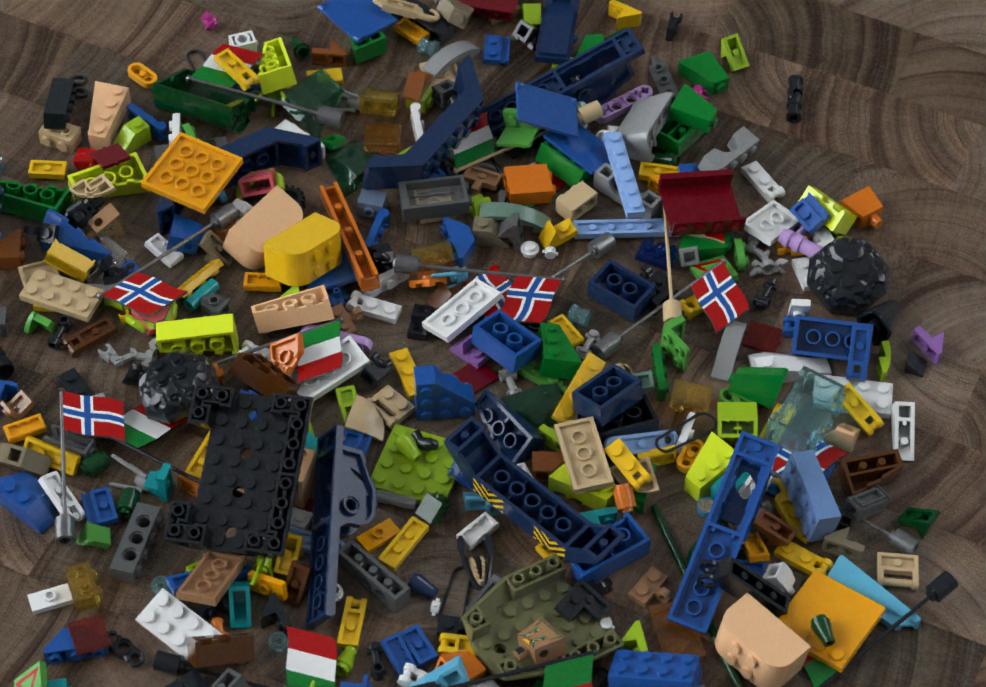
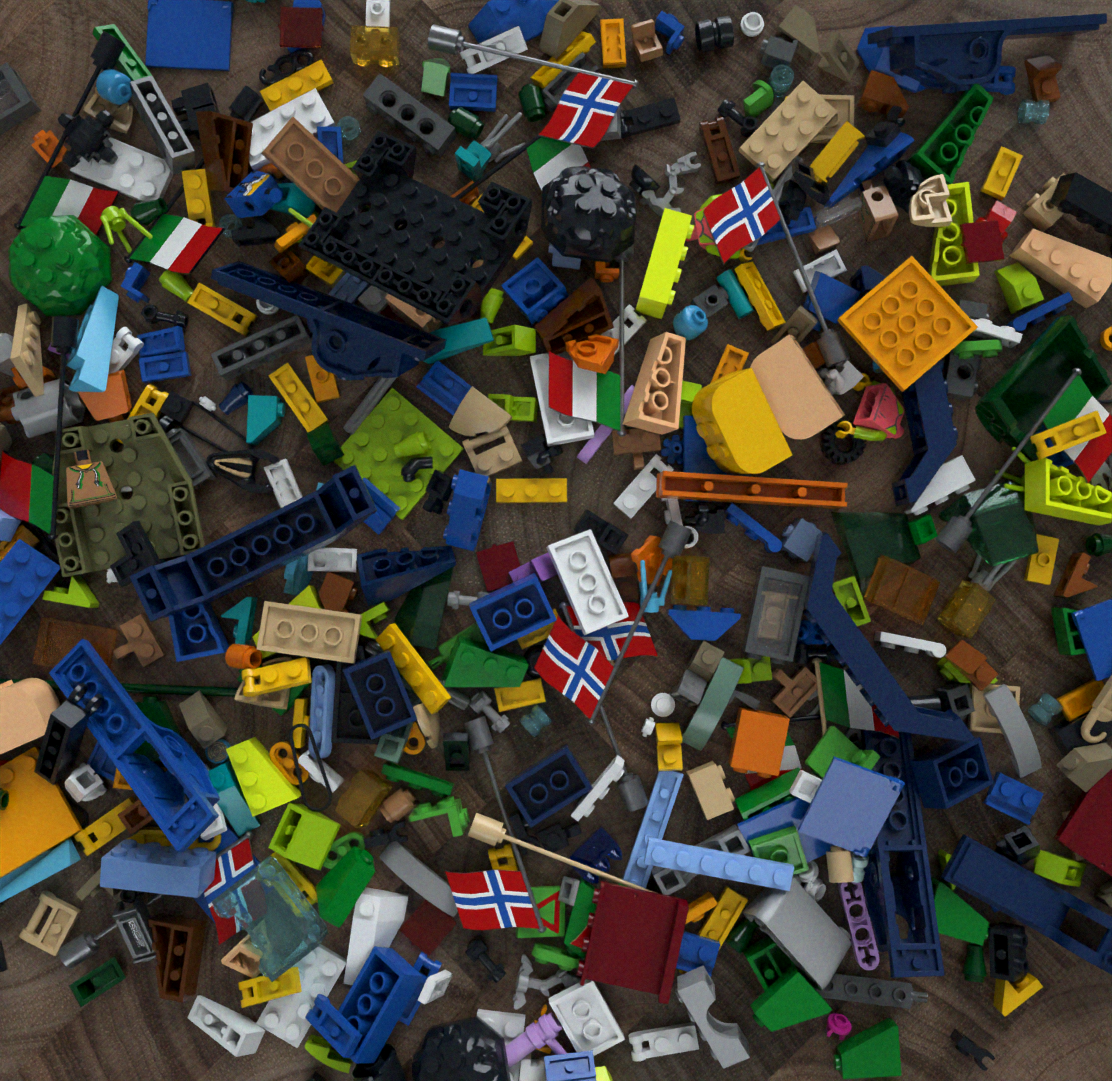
camera: 110 degrees right, 35 degrees up
(20, 312) = (779, 85): none -> clear light blue wheel
(138, 634) = (296, 85): none -> yellow plate
(139, 254) = (823, 239): none -> medium nougat slope
(239, 309) = (690, 322): none -> dark azure head
(247, 614) = (254, 195): none -> blue torso
(264, 668) = (198, 196): none -> yellow plate
(431, 560) = (263, 417): none -> teal slope
(433, 424) = (439, 490): none -> black plate
(499, 75) = (951, 773): none -> dark blue brick
(545, 138) = (805, 786): none -> white plate
(594, 148) = (781, 847): none -> bright green tile
(599, 257) = (600, 788): none -> white plate
(600, 22) = (1008, 951): none -> black brick
(625, 354) = (456, 751): none -> black slope
(684, 374) = (398, 804): none -> medium nougat brick
(687, 517) = (202, 719): none -> dark tan slope
(713, 378) = (380, 837): none -> black plate

